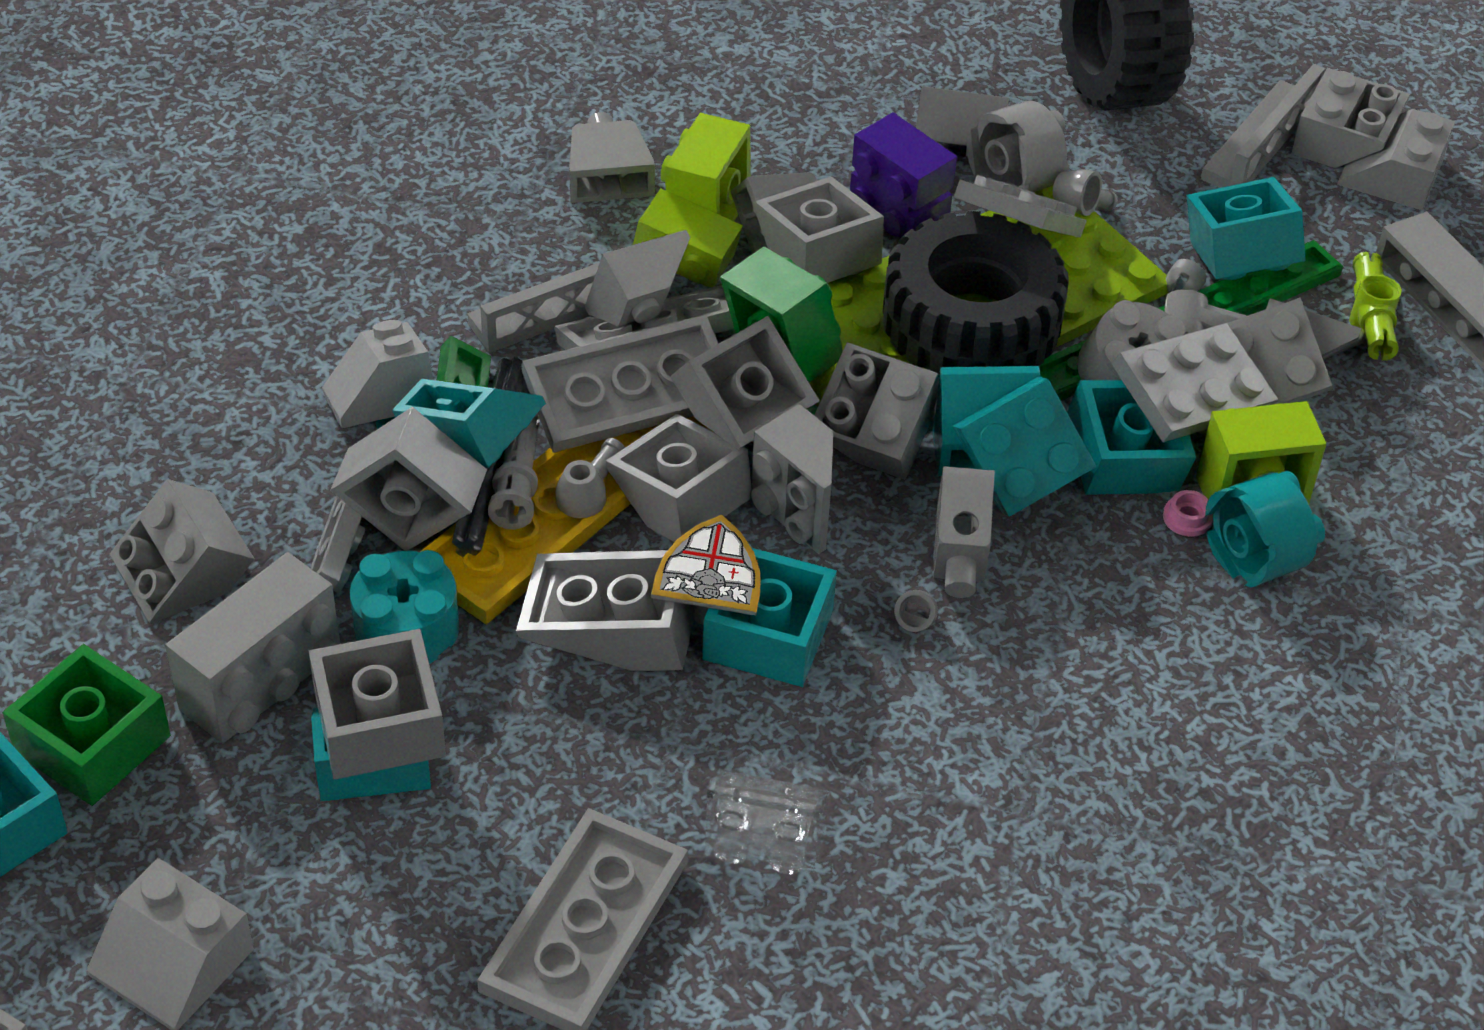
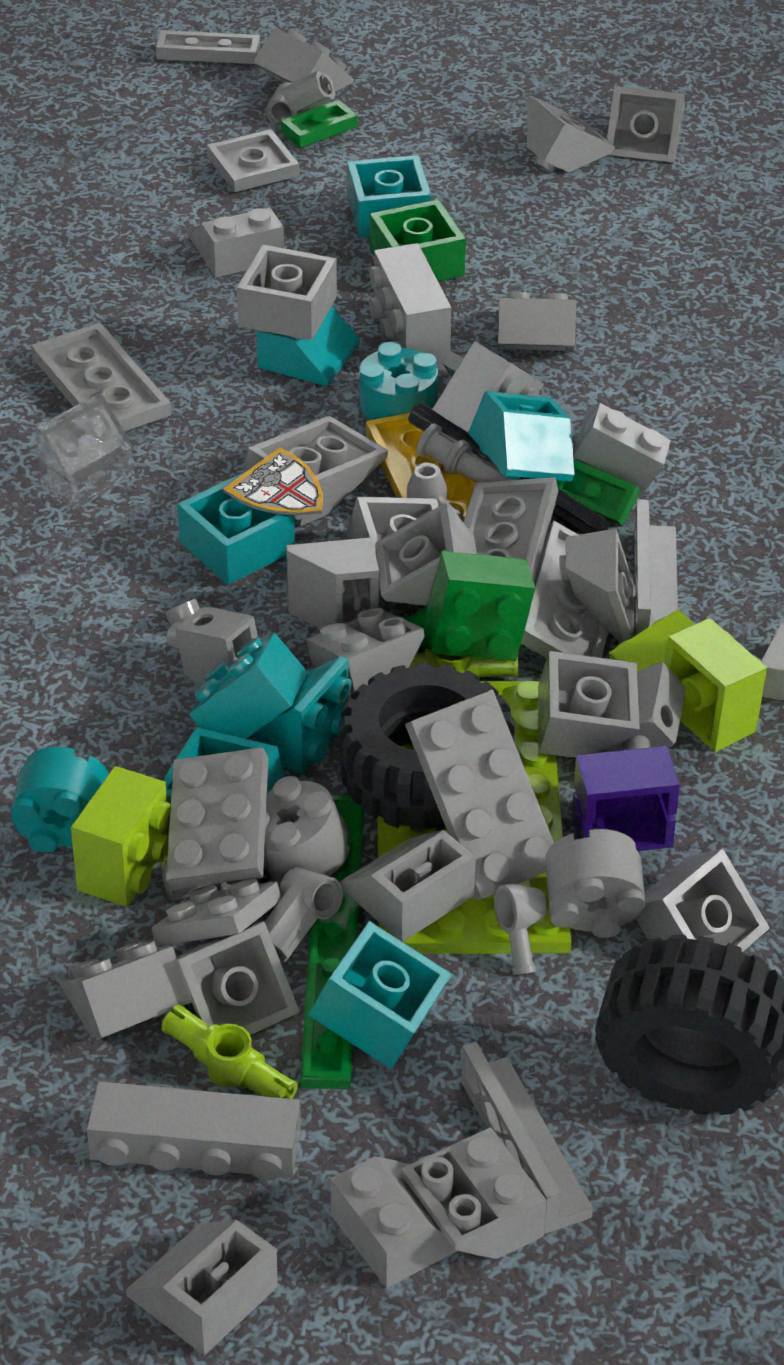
camera: 125 degrees right, 5 degrees down
(1124, 248) = (414, 883): none -> light grey slope
(1382, 400) = (126, 989): none -> light grey slope

